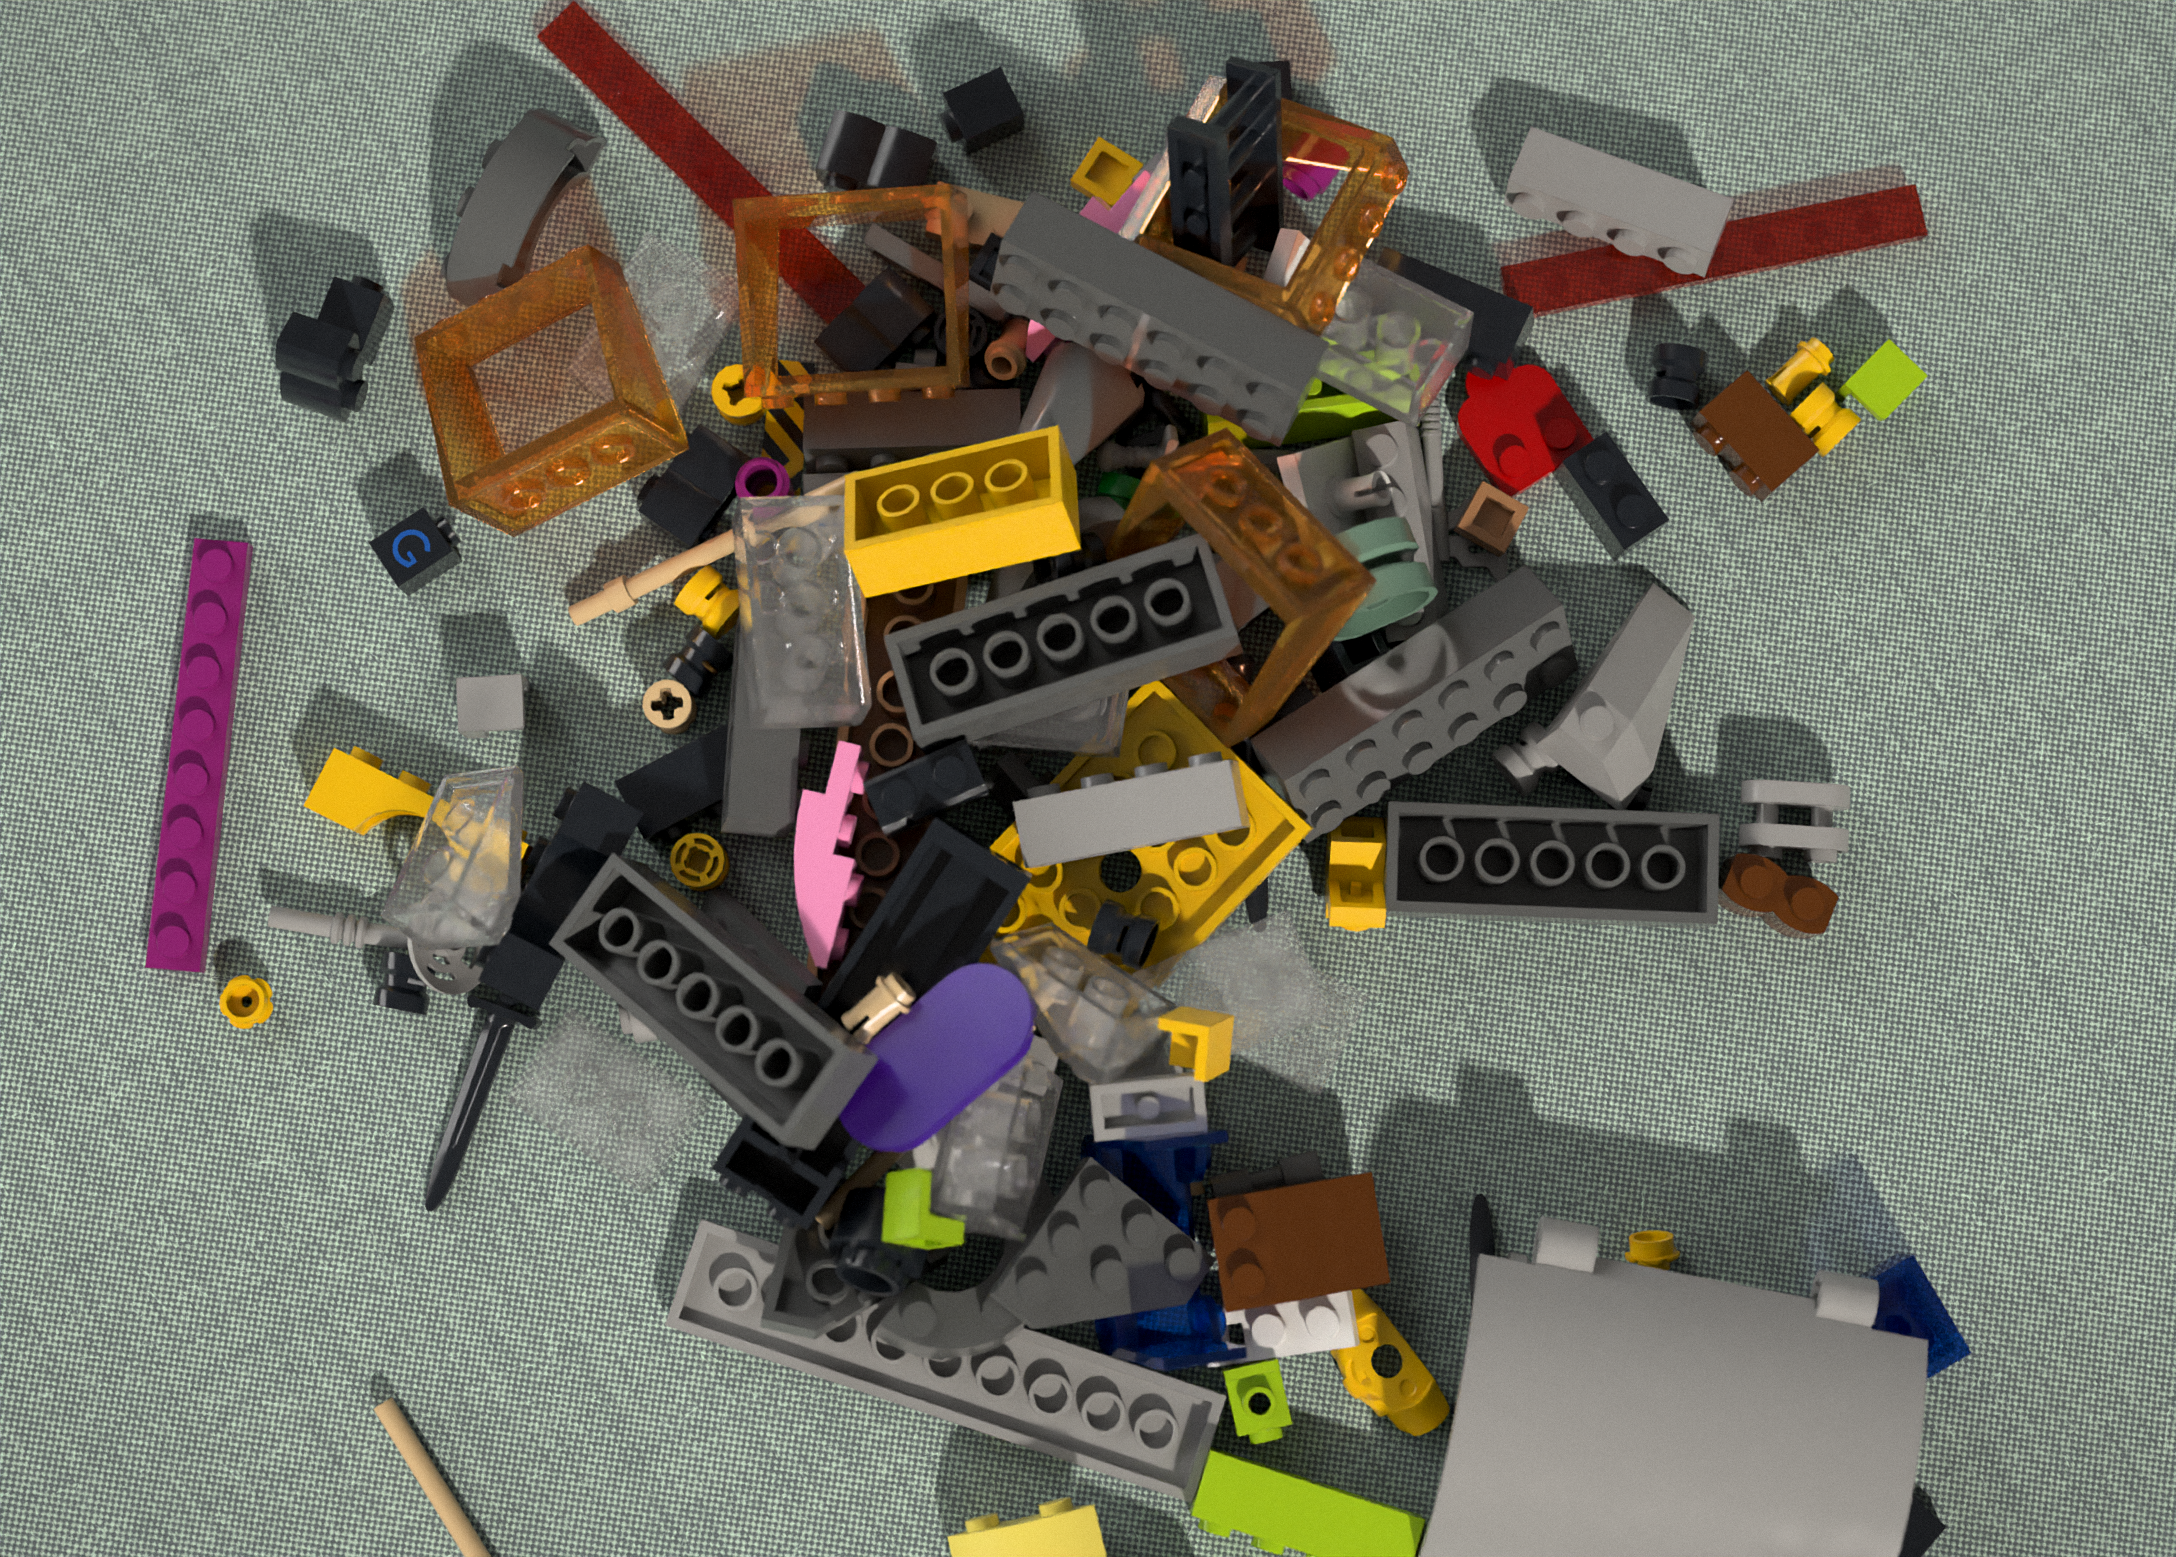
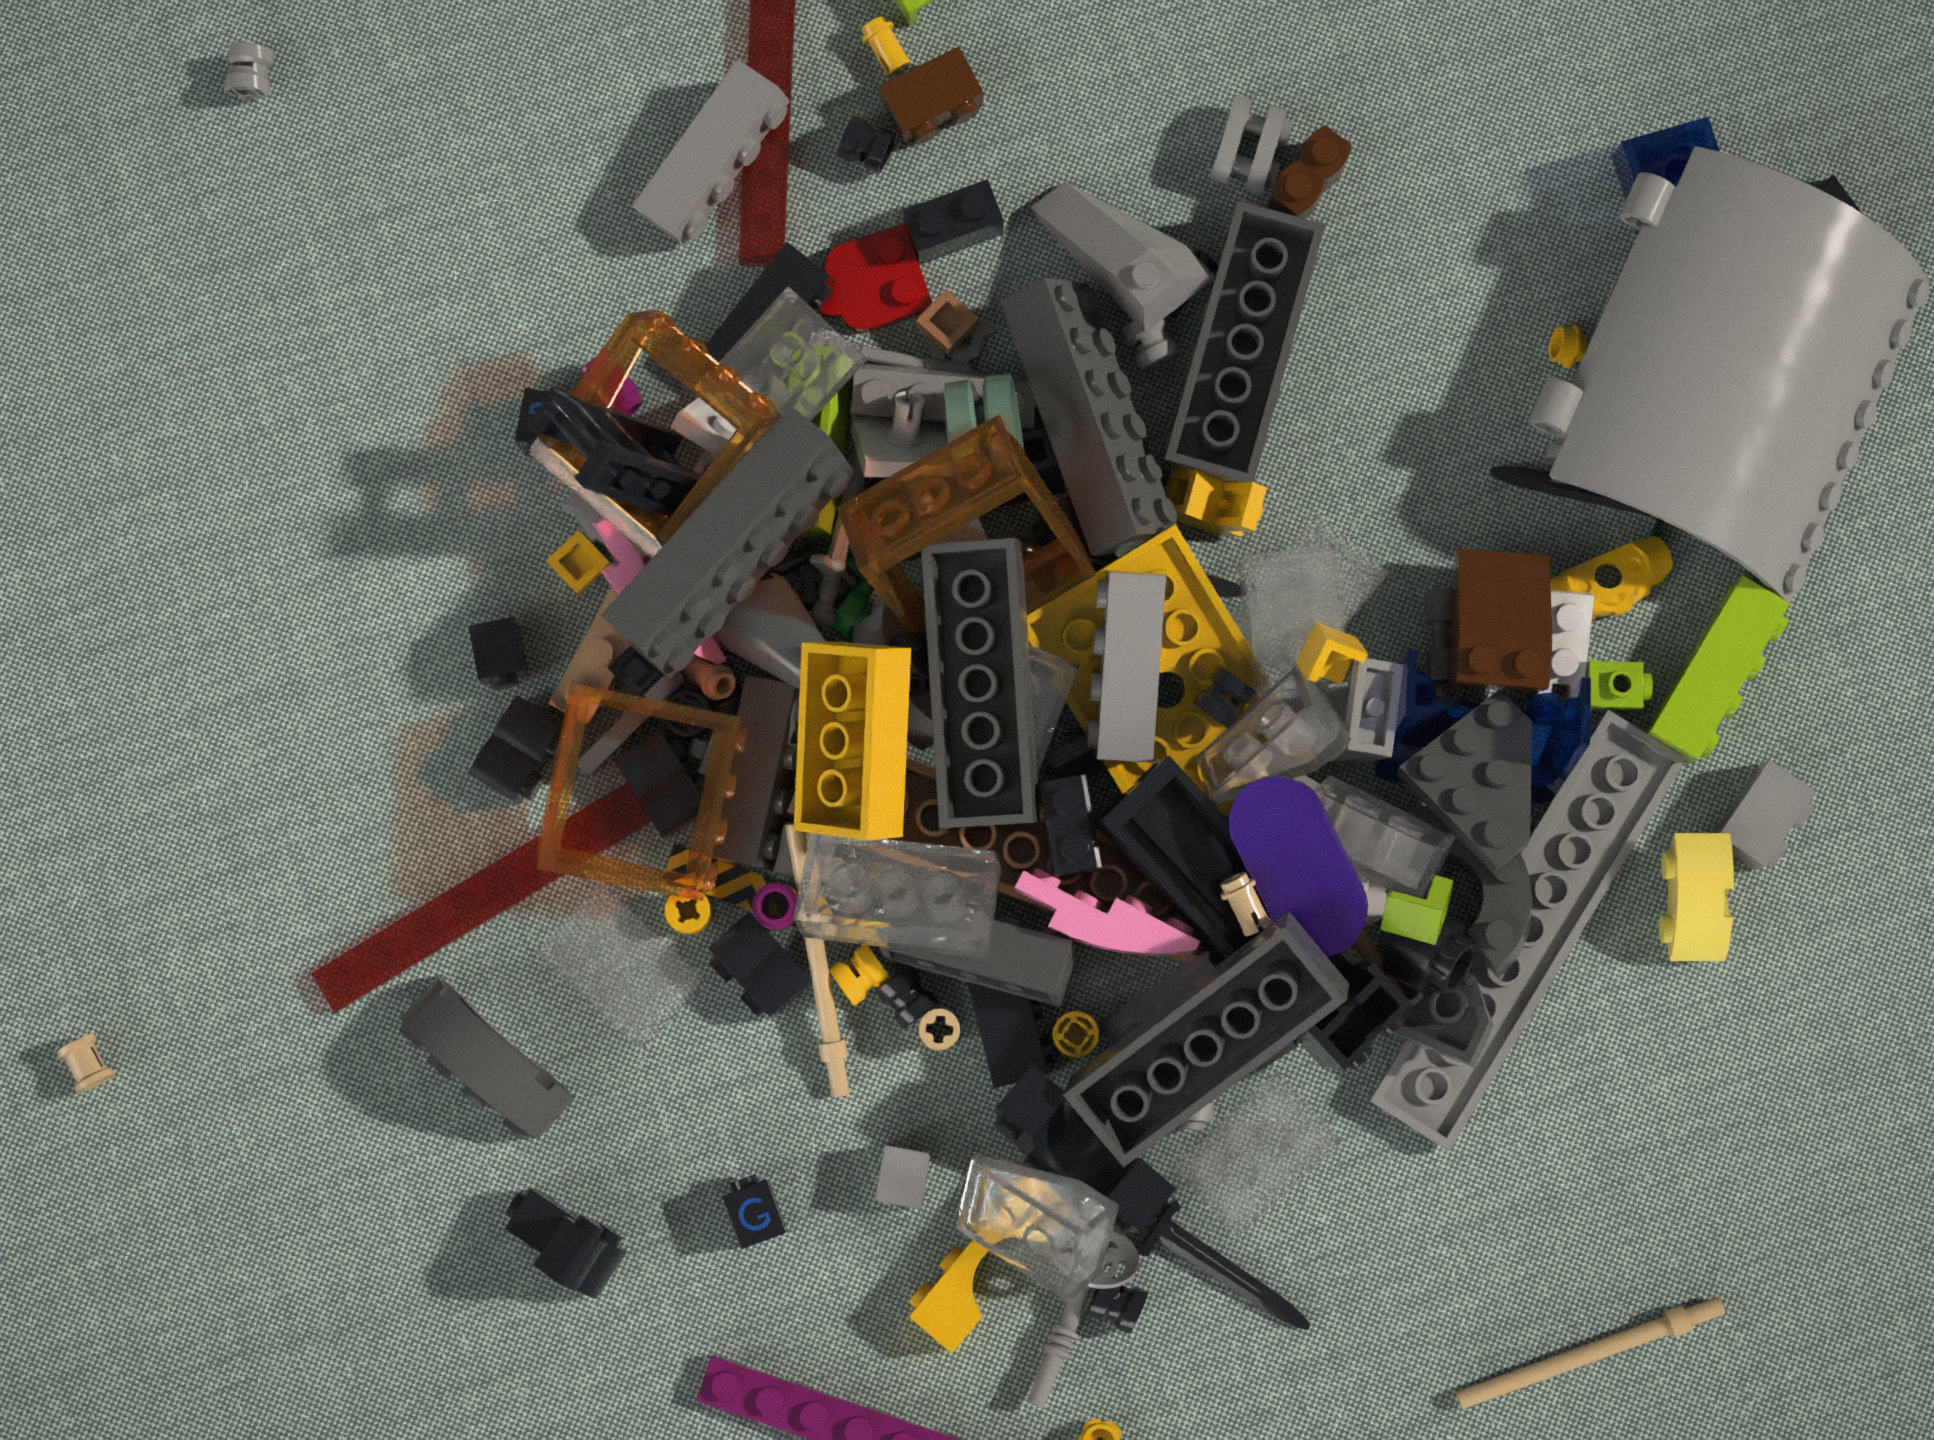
camera: 75 degrees left, 0 degrees up
(579, 457) = (722, 1060): clear orange windscreen -> none
(1824, 419) = (930, 37): yellow wheel -> none

